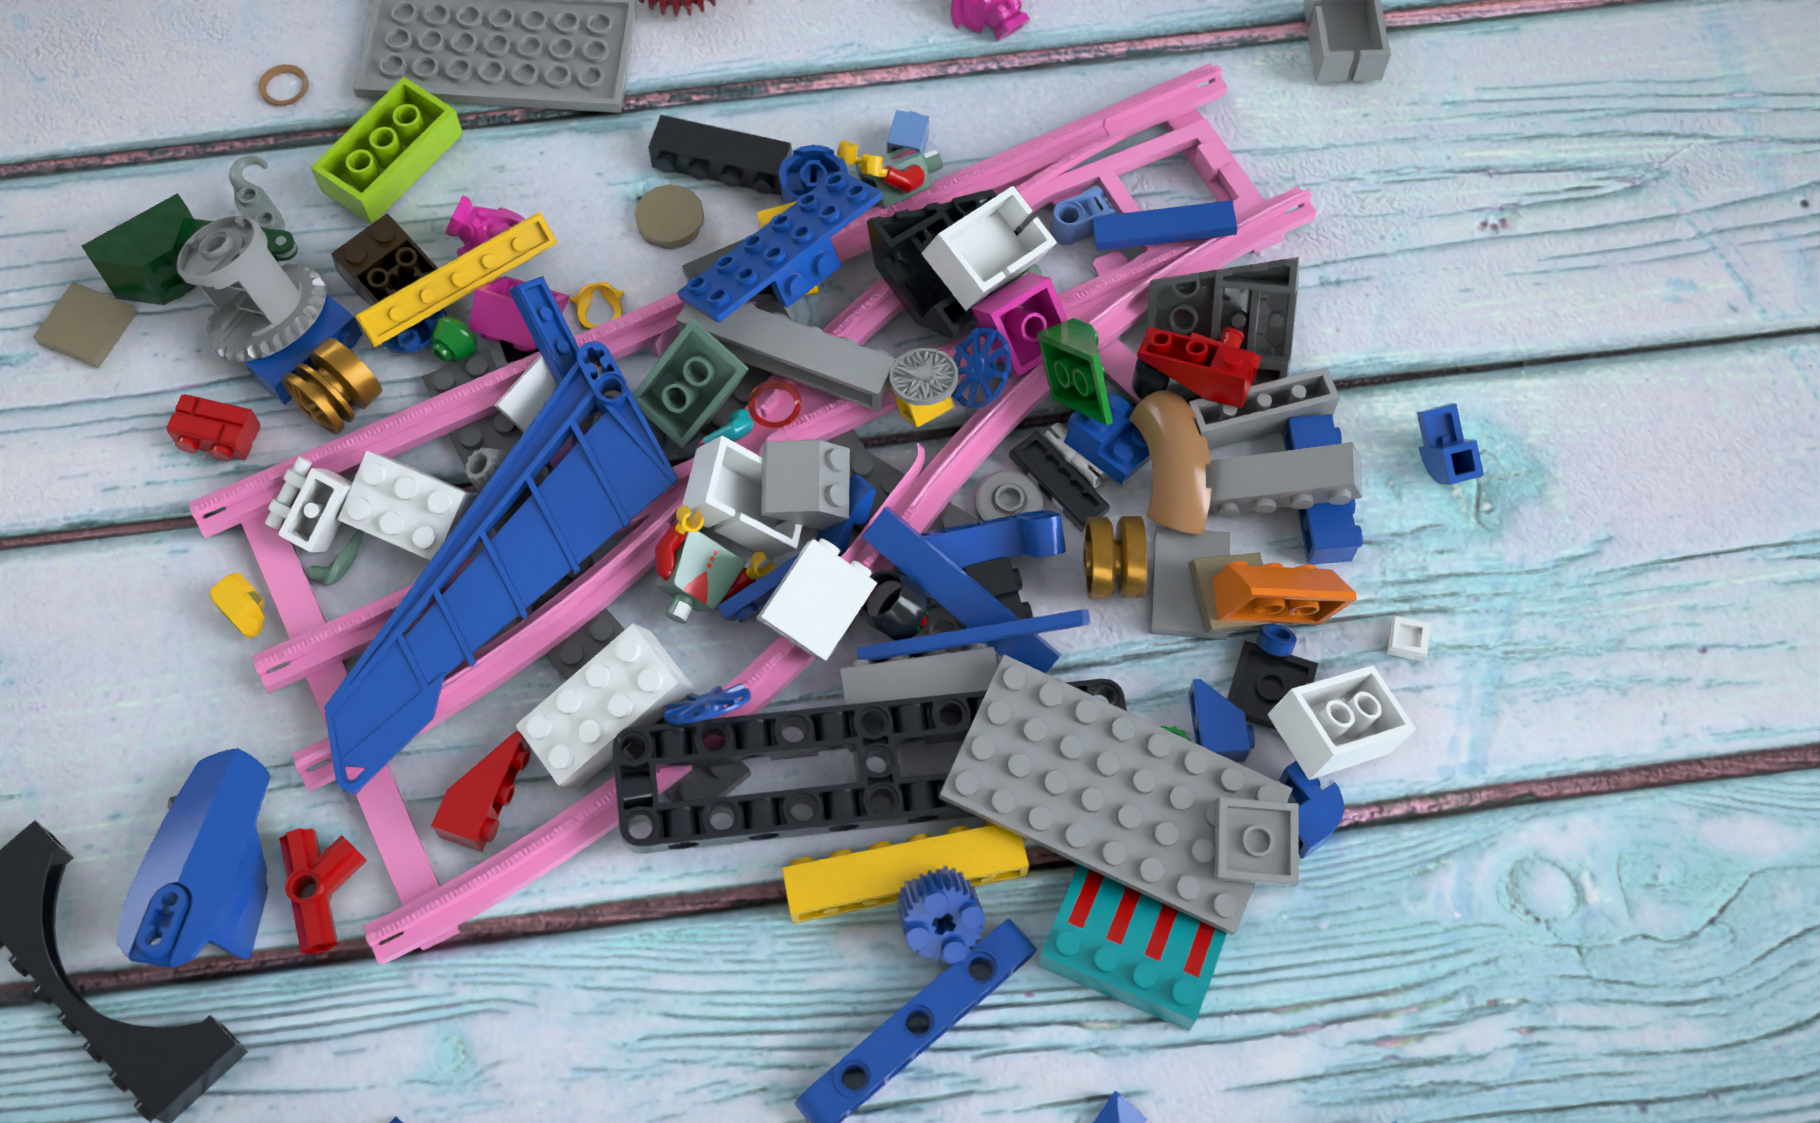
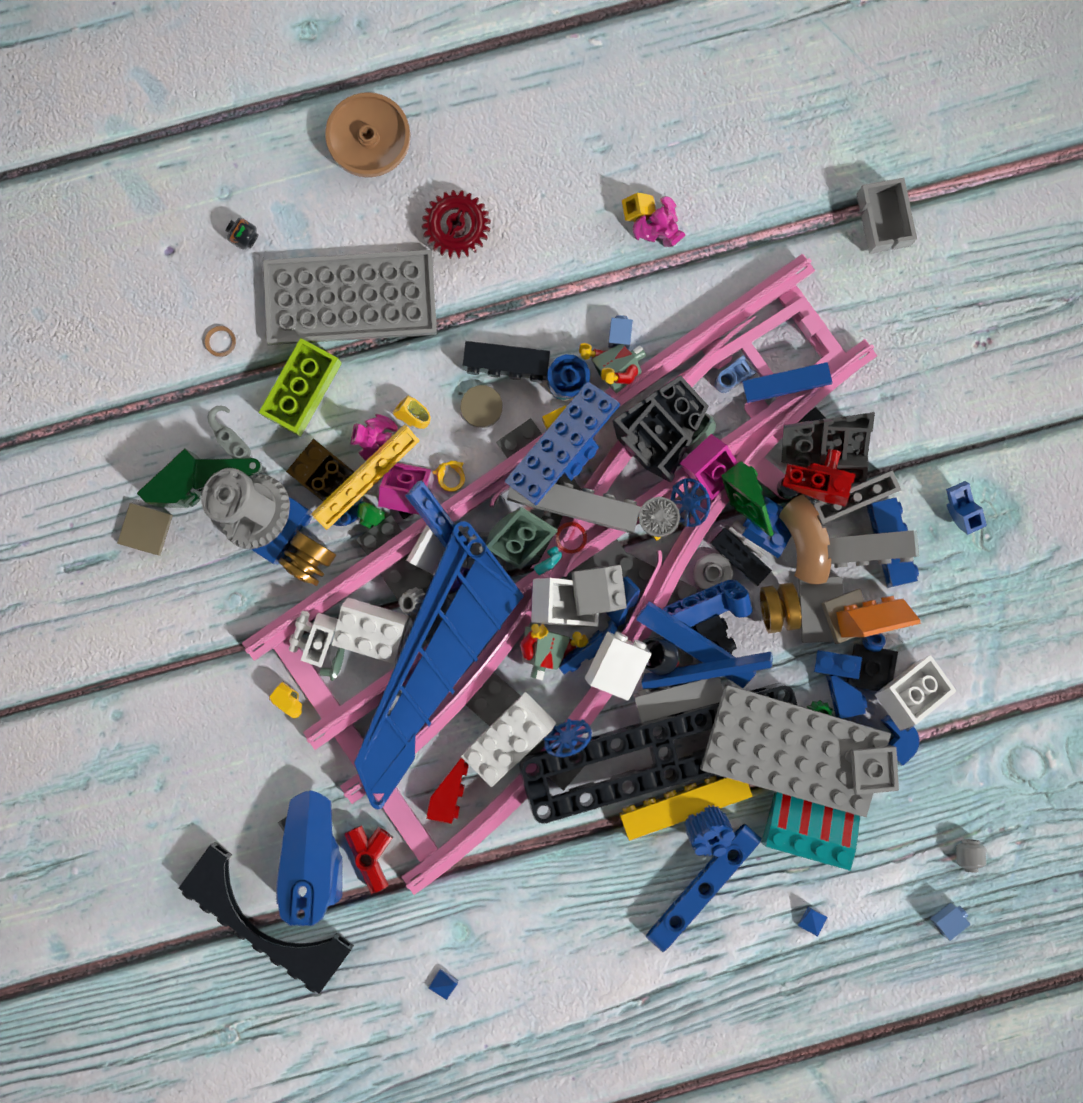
camera: 10 degrees left, 20 degrees up
(213, 427) = (241, 590): red brick -> none
(557, 207) = (412, 413): none -> yellow rock
(983, 250) = (687, 425): white piece -> none
(1217, 662) = (838, 664): none -> blue brick
(1408, 638) = (947, 627): white tile -> none
(1430, 1035) = (971, 855): none -> light grey head

